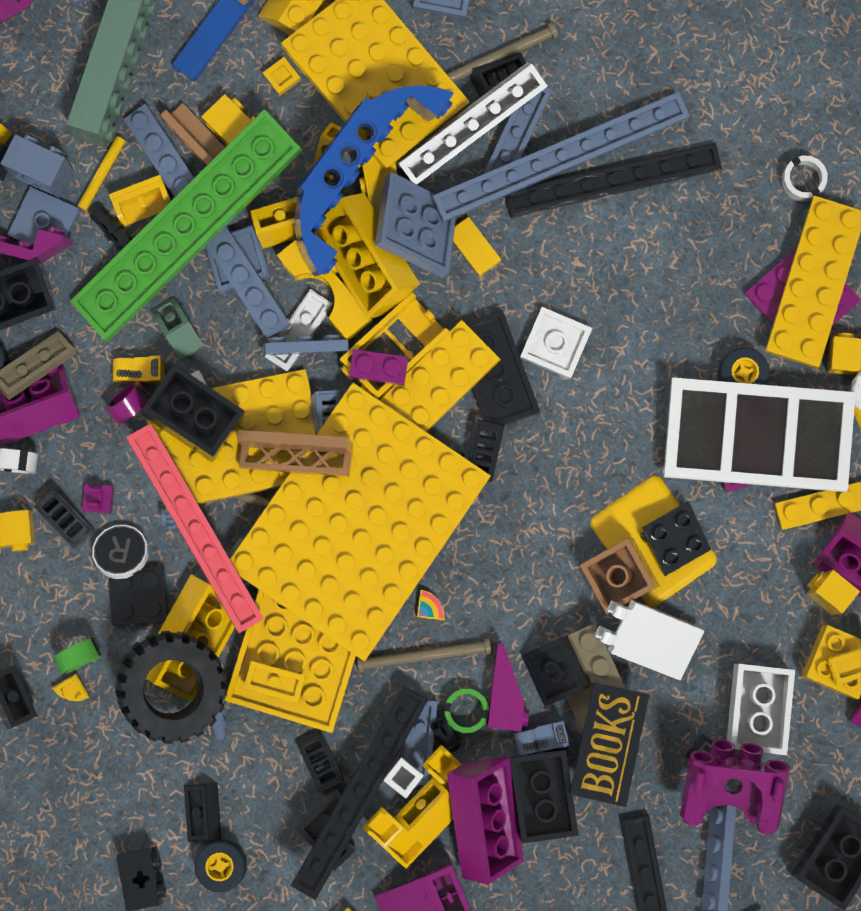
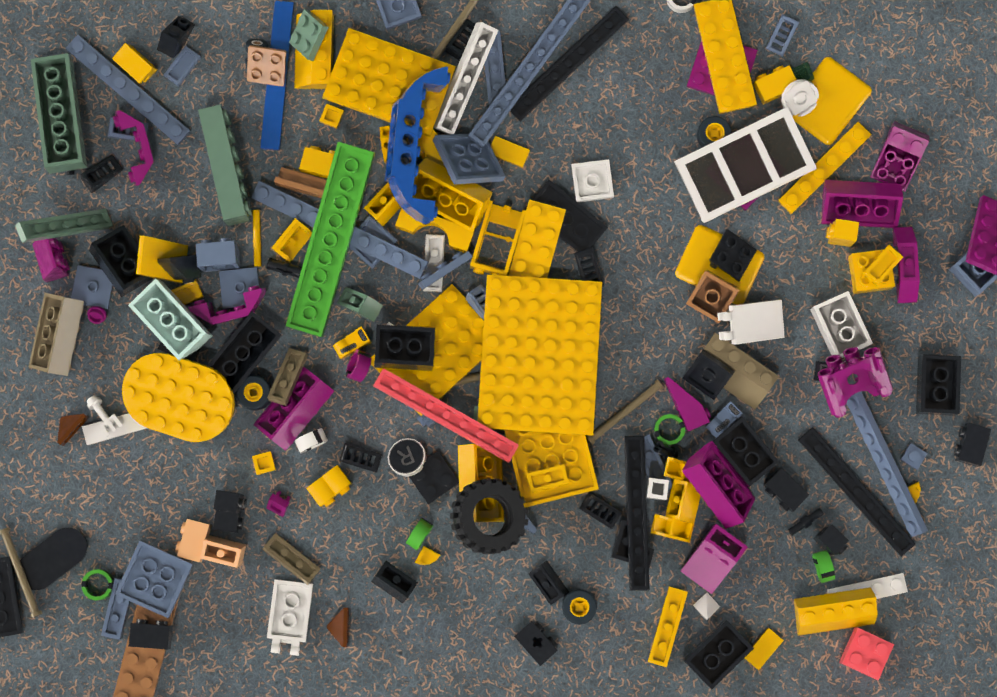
camera: 30 degrees left, 0 degrees up
(98, 498) = (373, 434): magenta tile -> none
(295, 442) = (476, 329): medium nougat fence -> none
(378, 367) = (497, 256): magenta plate -> none
(430, 607) = (611, 381): tile -> none
(567, 874) = (785, 490): none -> black brick
(609, 744) = (766, 398): black tile -> none

